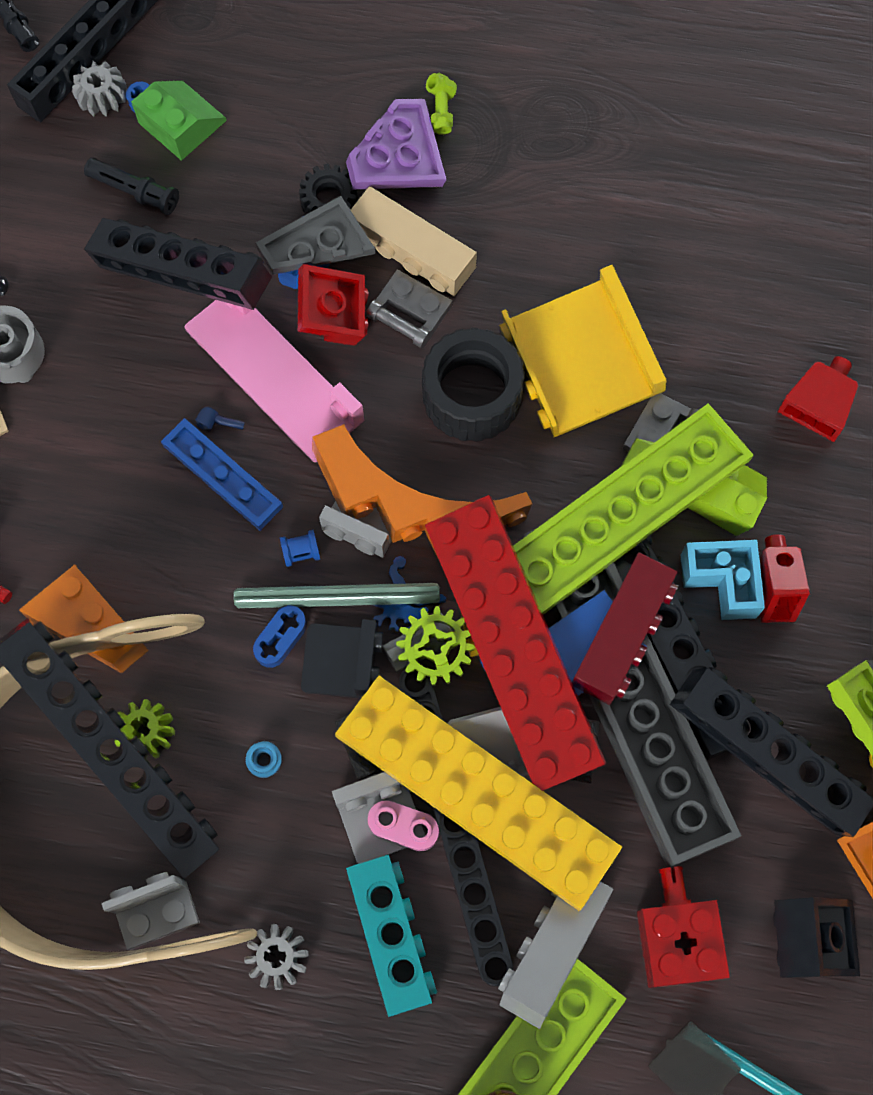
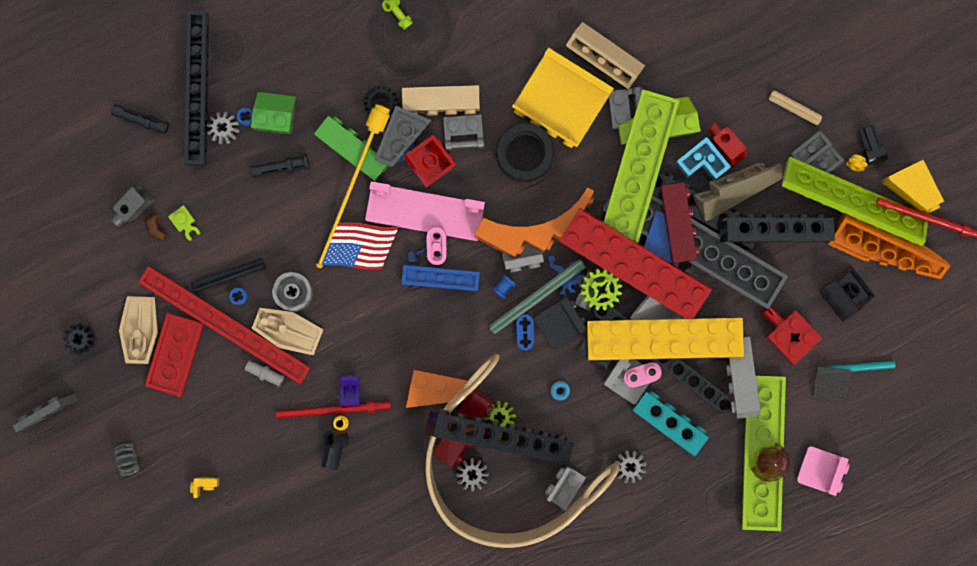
camera: 35 degrees left, 15 degrees up
(46, 790) = (466, 476): none -> light grey gear
(118, 678) = (476, 405): none -> dark red brick
(149, 349) = (358, 243): none -> flag
(179, 262) = (389, 188): black brick -> none
(239, 207) = (350, 147): none -> bright green brick
(250, 422) = (436, 244): none -> bright pink plate
(398, 150) = (397, 55): medium lavender plate -> none
(686, 337) = (605, 55): none -> tan brick
(748, 649) = (735, 188): none -> dark tan wedge
(822, 398) = (688, 38): red torso -> none

